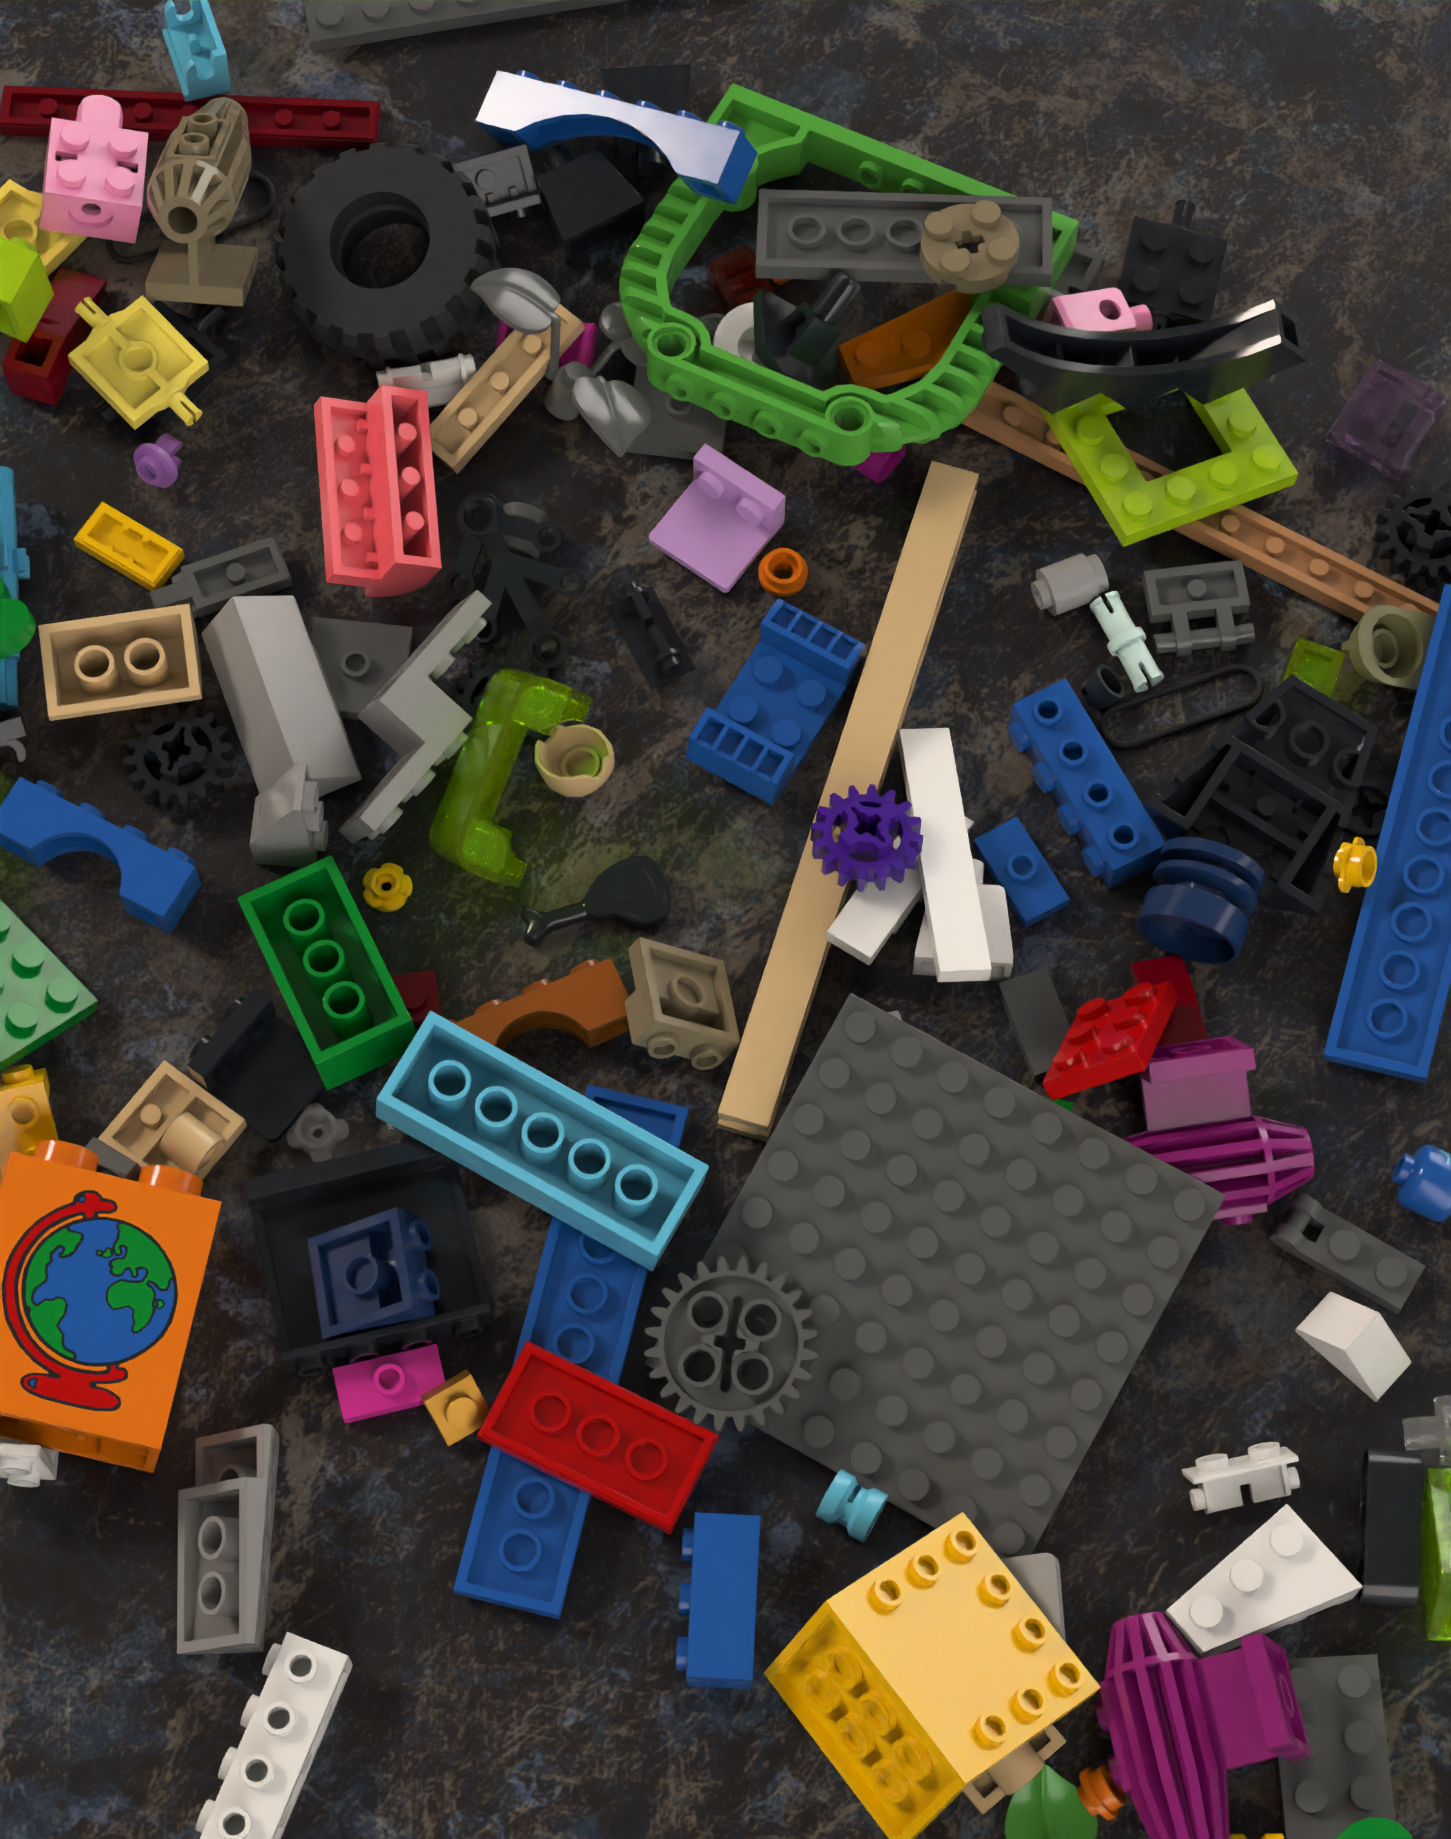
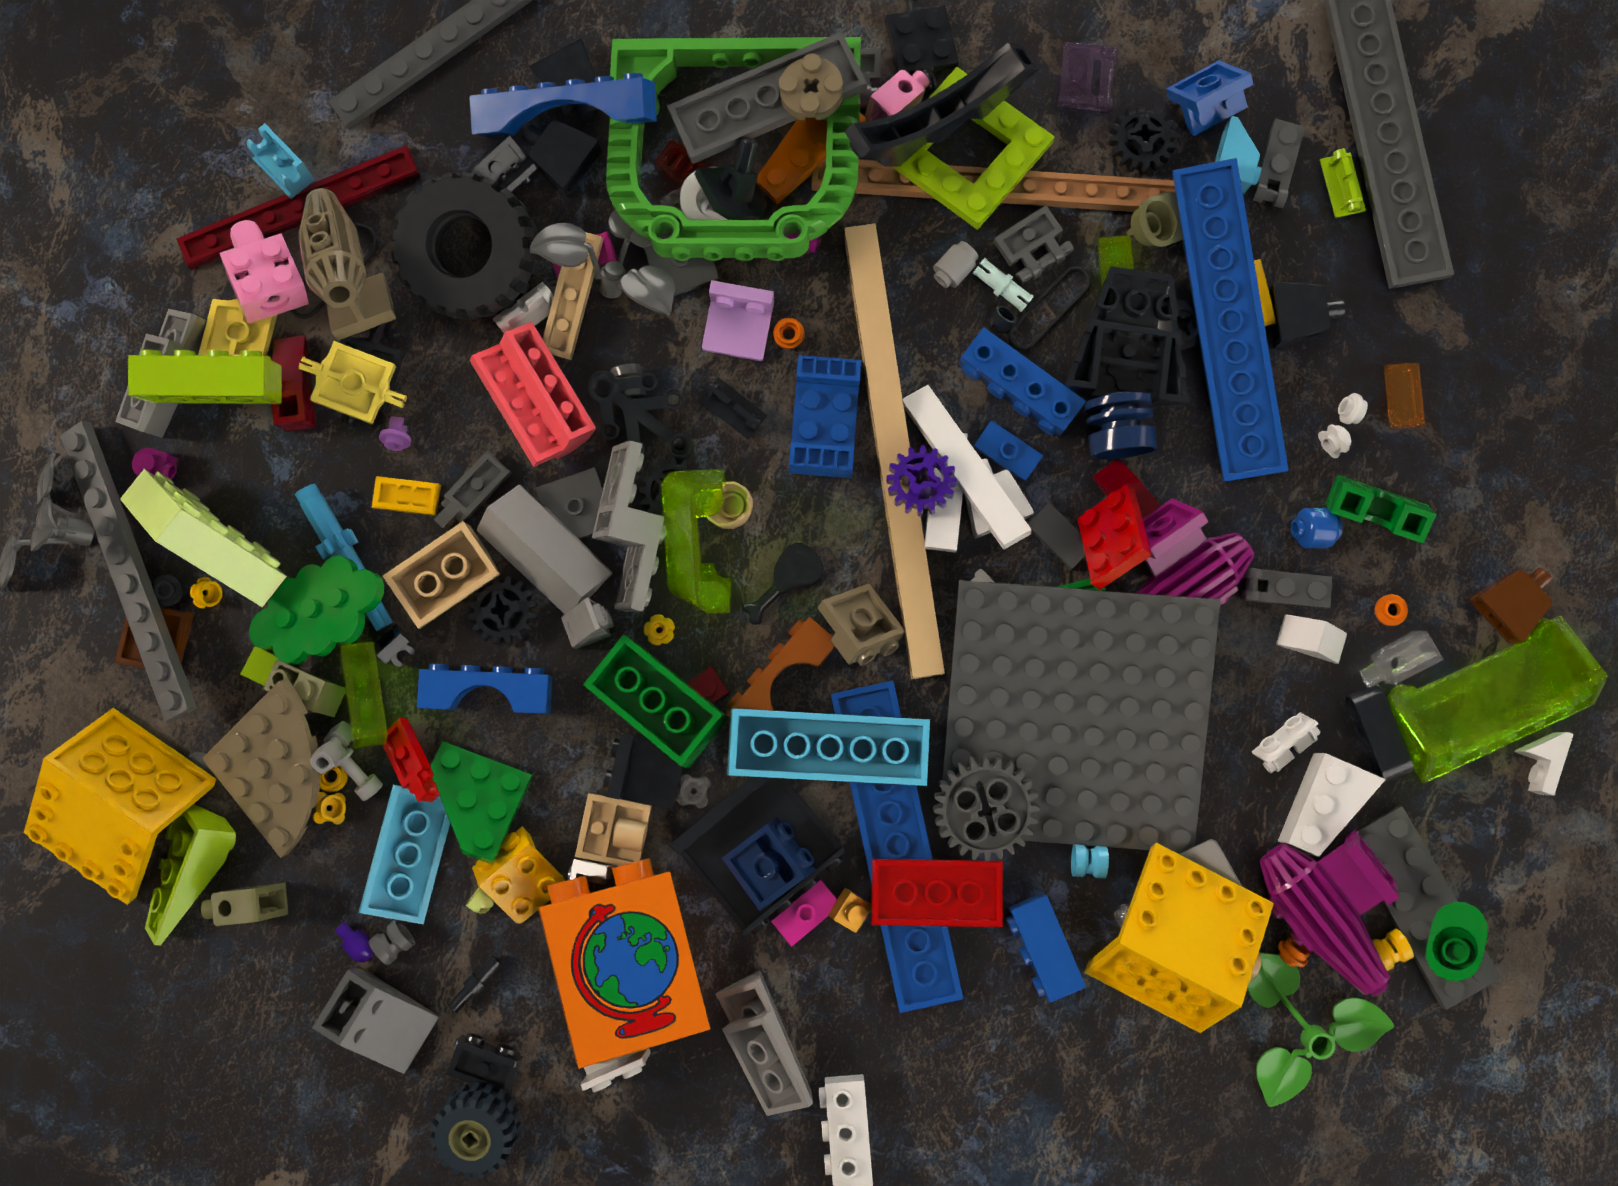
camera: 25 degrees left, 15 degrees up
(1355, 865) = (1196, 364): yellow plate -> none

